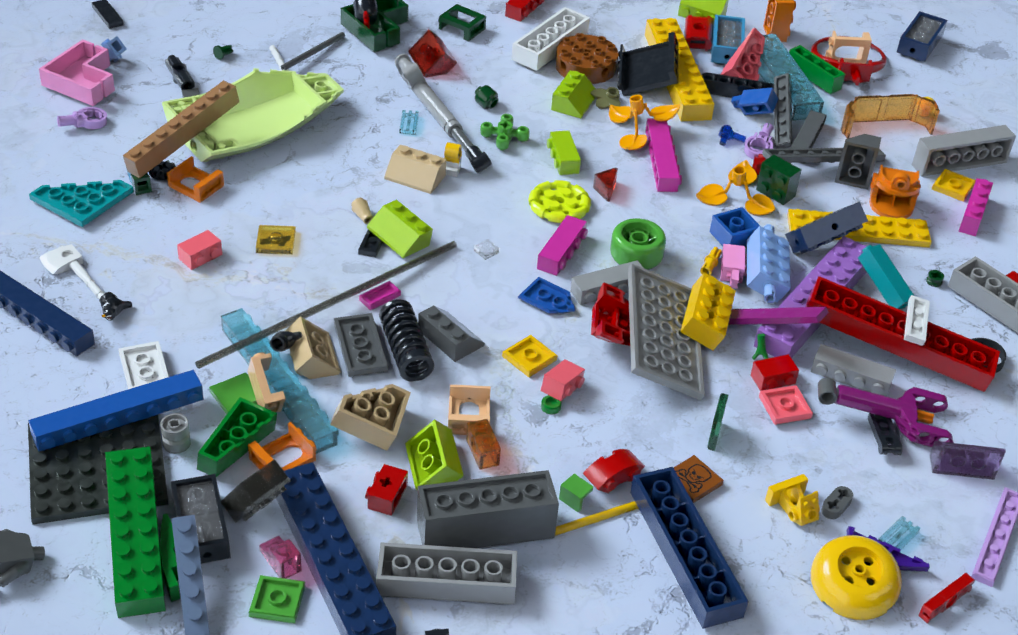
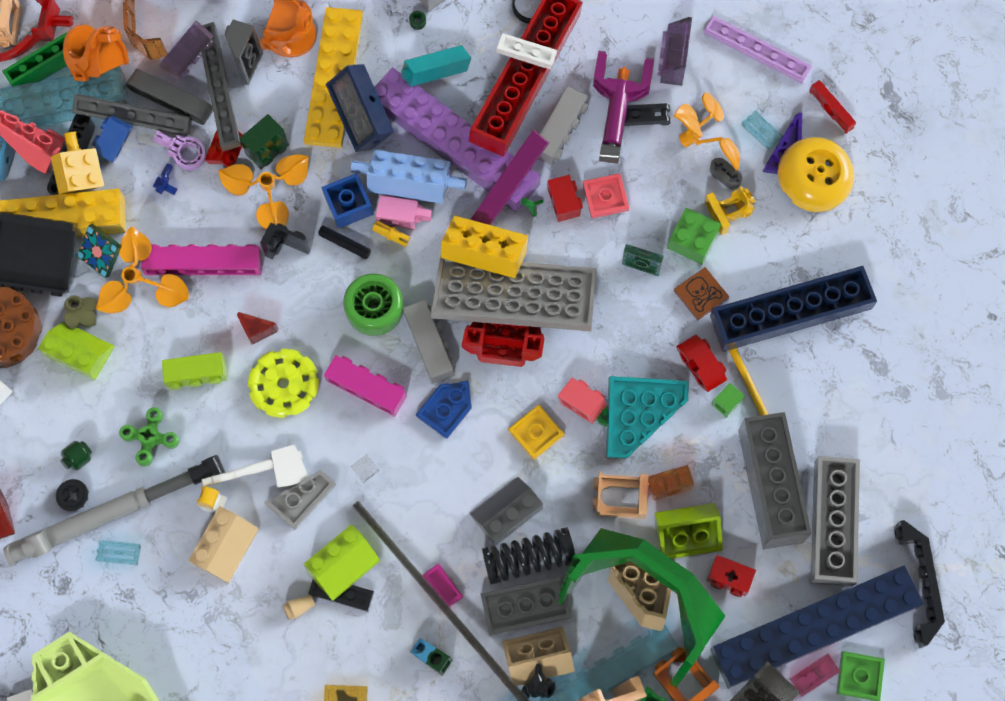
camera: 80 degrees left, 30 degrees up
(314, 284) = (431, 656): none -> leg
(339, 425) = (697, 609): none -> green panel
(454, 98) = (62, 495): none -> black gear
(455, 211) = (299, 501): none -> light grey wing
(485, 202) = (285, 462): none -> white piece
(557, 422) = (638, 410): none -> teal plate
(661, 98) = (99, 250): none -> tile
(685, 188) = (280, 234): none -> black bracket
(697, 235) = (344, 242): none -> black axle
(726, 80) = (76, 168): none -> yellow brick
(755, 468) = (694, 236): none -> bright green brick
(832, 81) = (93, 51): none -> orange animal
(840, 128) = (187, 51): none -> clear purple slope
(859, 493) = (692, 135): none -> light orange plant

